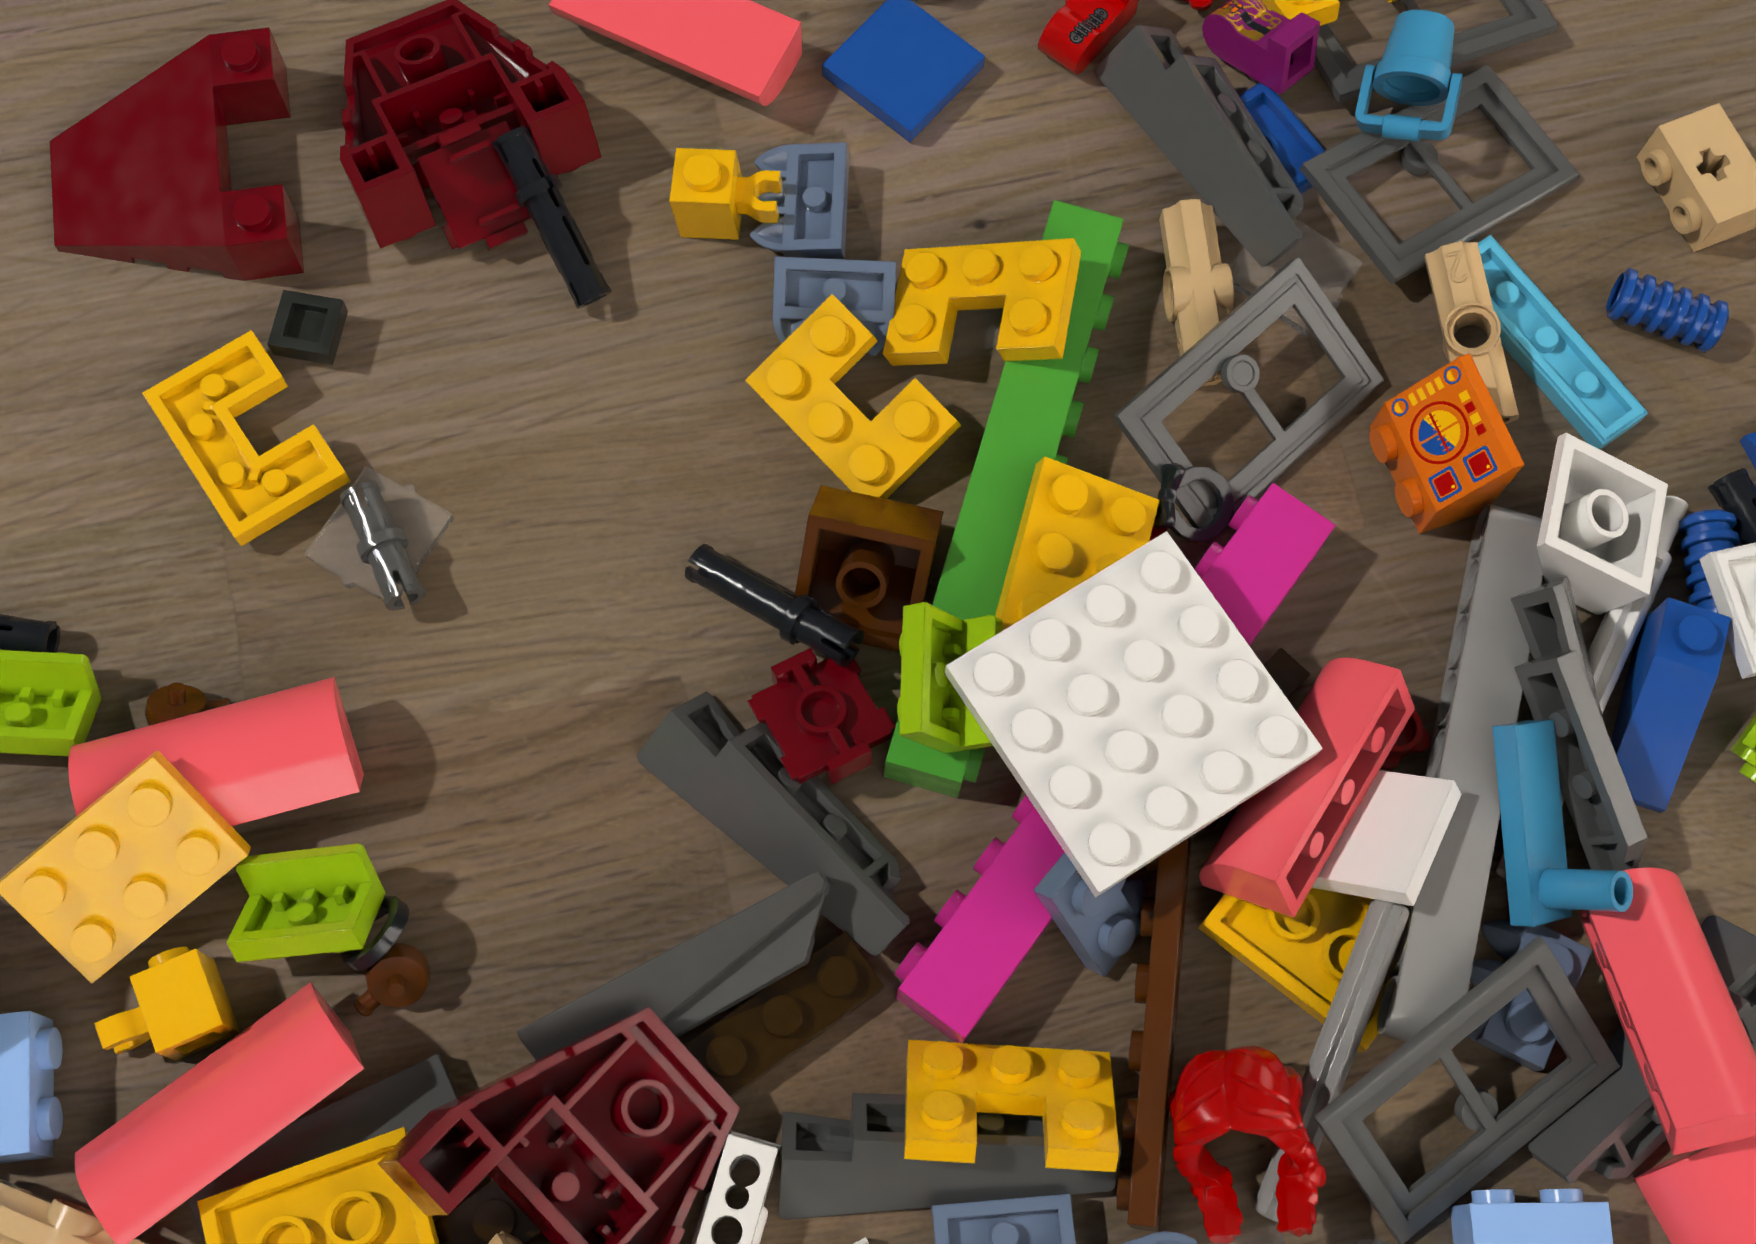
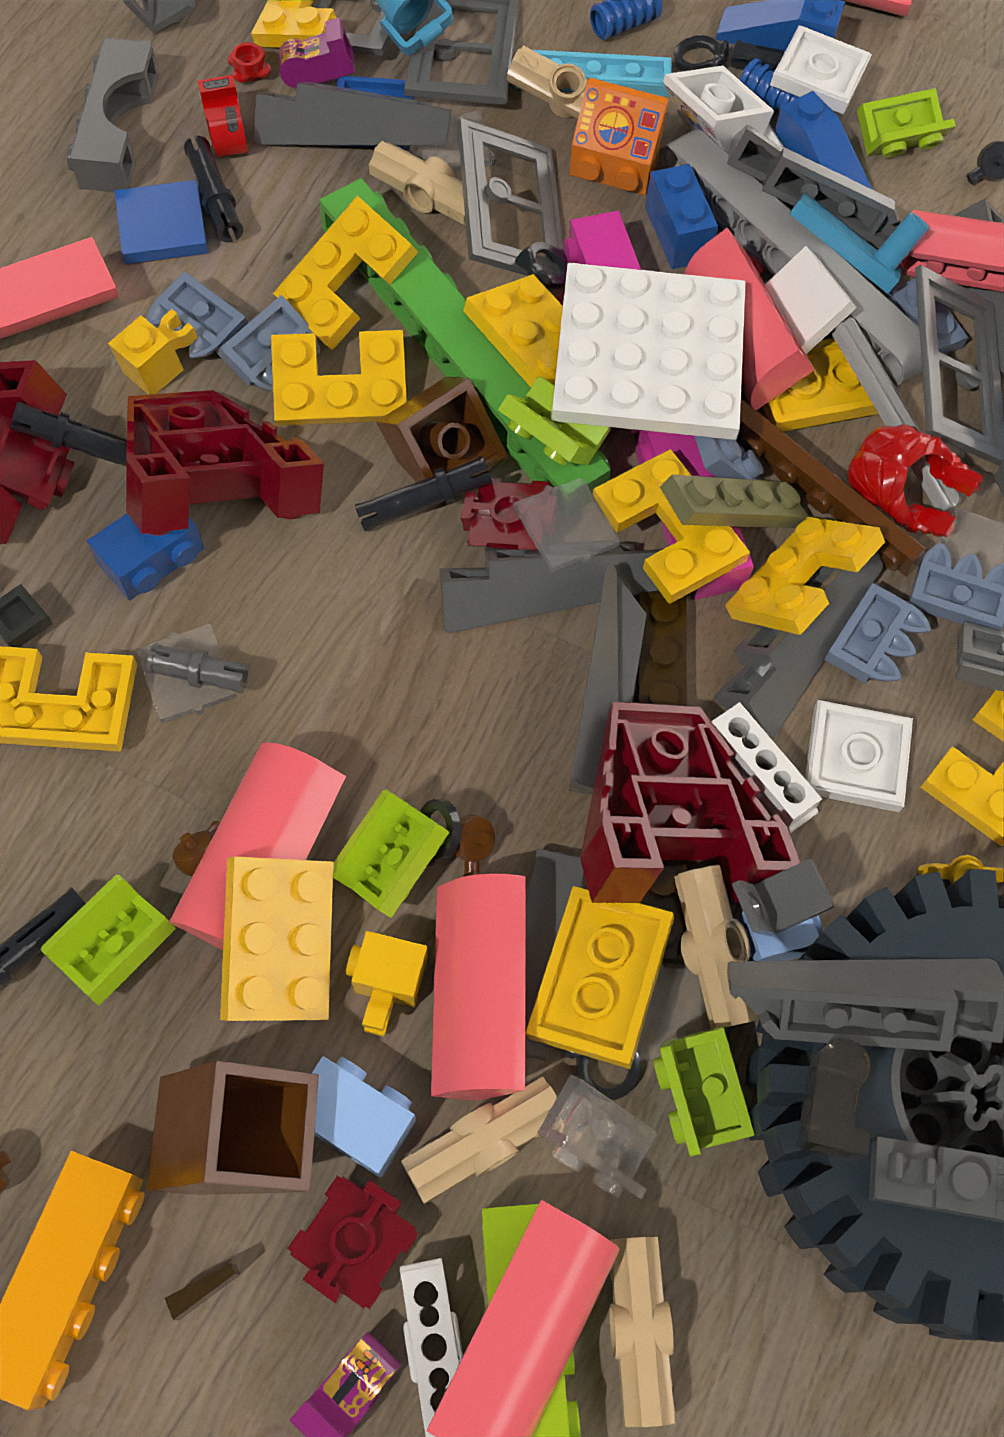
camera: 50 degrees left, 5 degrees down
(484, 380) = (141, 560): none -> blue brick
(634, 338) = (206, 451): none -> dark red wedge
(842, 789) = (566, 524): none -> clear piece
(946, 962) = (700, 550): none -> yellow plate
(977, 98) = (216, 199): none -> black pin
(1020, 955) = (733, 502): none -> olive plate
(1406, 597) = (679, 213): none -> blue brick
(1685, 470) = (720, 50): none -> black piece

